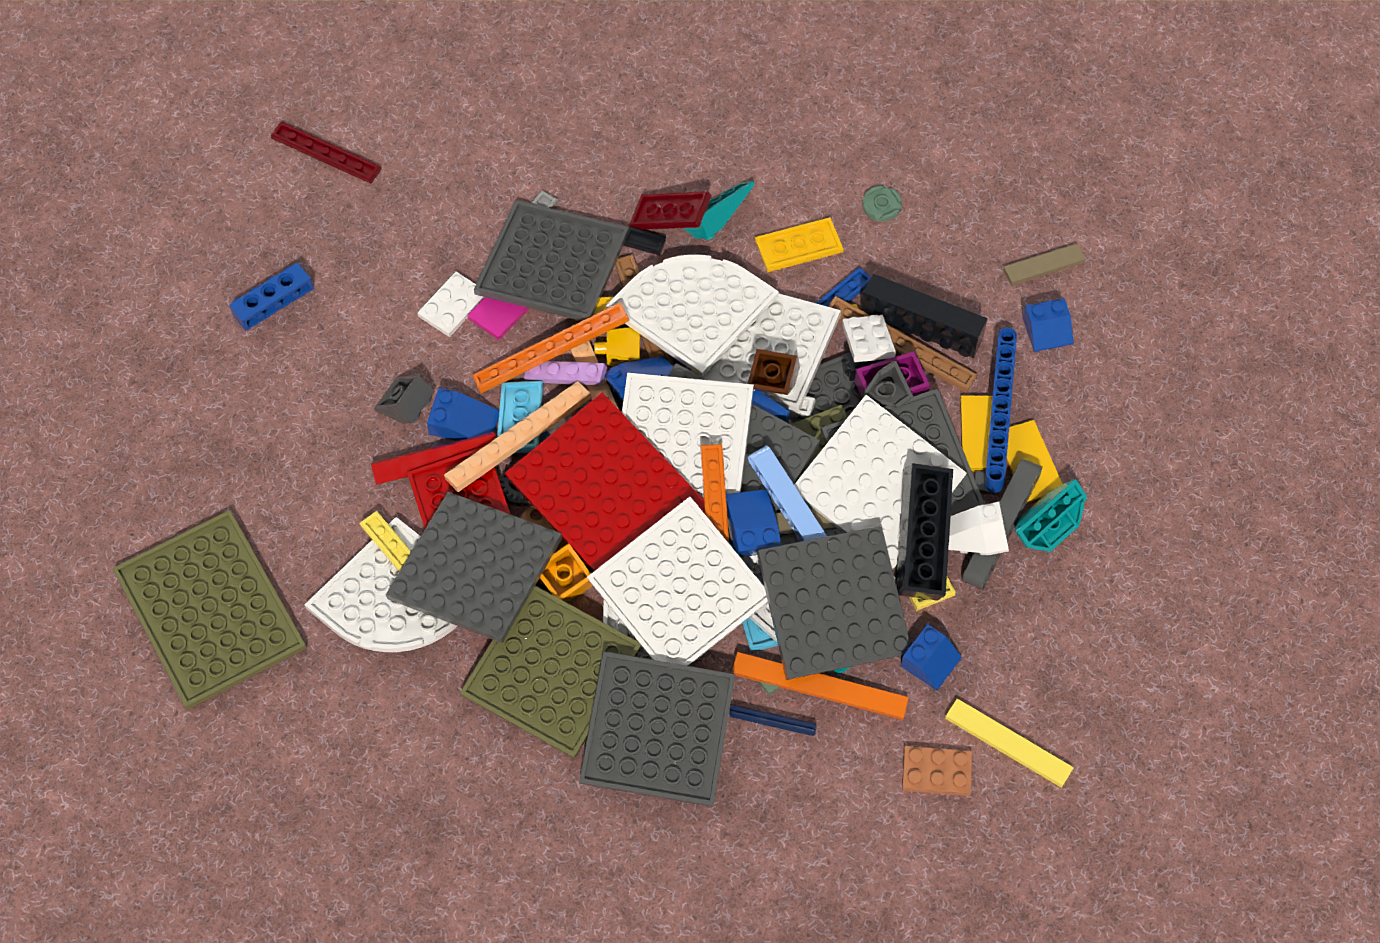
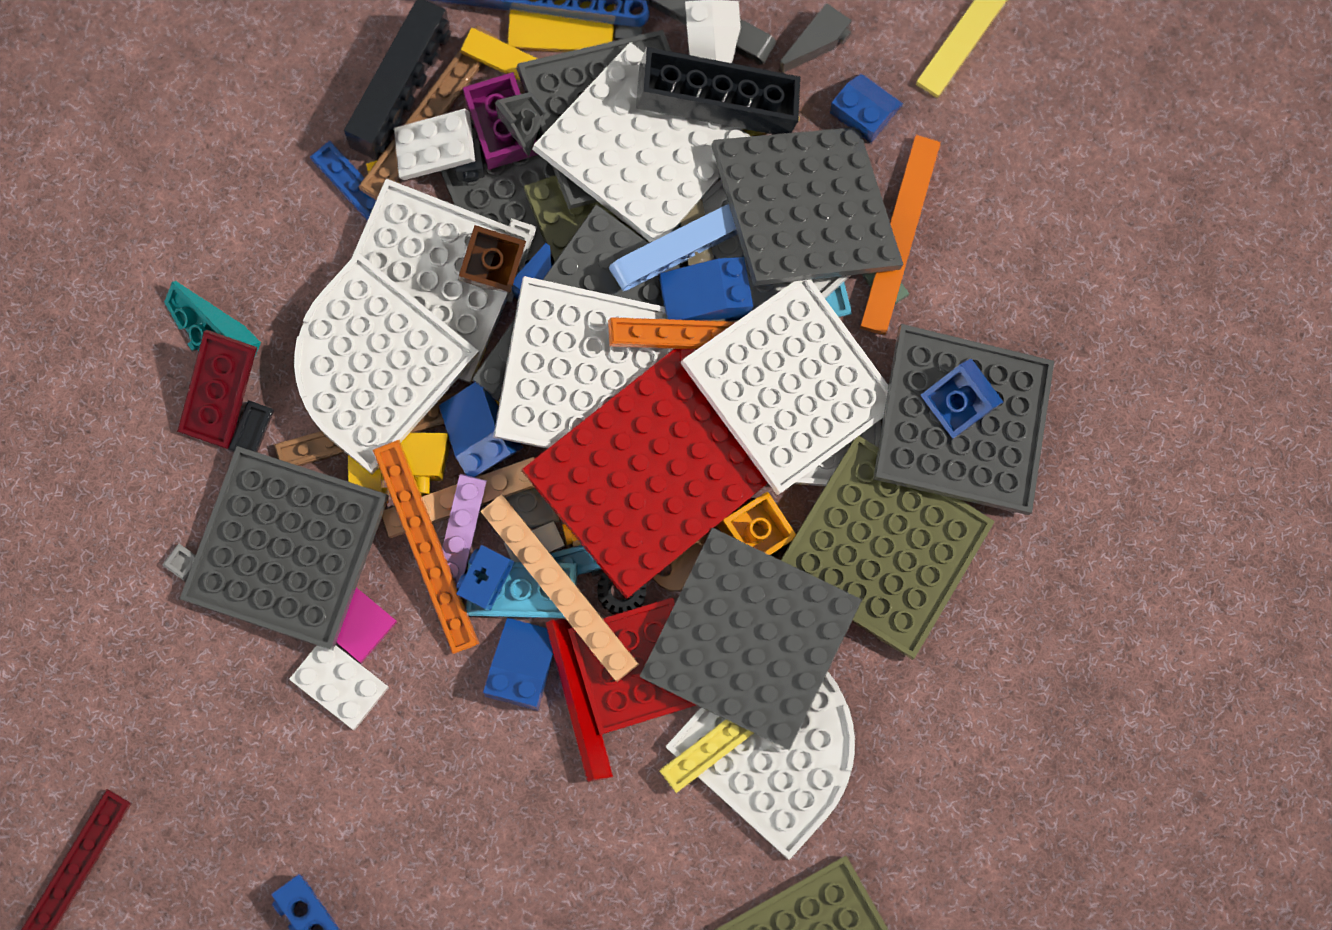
camera: 90 degrees left, 15 degrees up
(405, 399) = (488, 742): dark grey slope -> none
(526, 387) = (493, 565): none -> blue brick
(672, 719) = (961, 398): none -> blue slope
(773, 720) = (943, 286): dark blue axle -> none
(798, 244) = (268, 231): yellow tile -> none
(882, 203) = (210, 124): sand green tile -> none
(937, 770) = (1004, 110): nougat plate -> none
(953, 384) = (493, 52): none -> yellow tile
(990, 622) = (820, 37): none -> dark grey slope

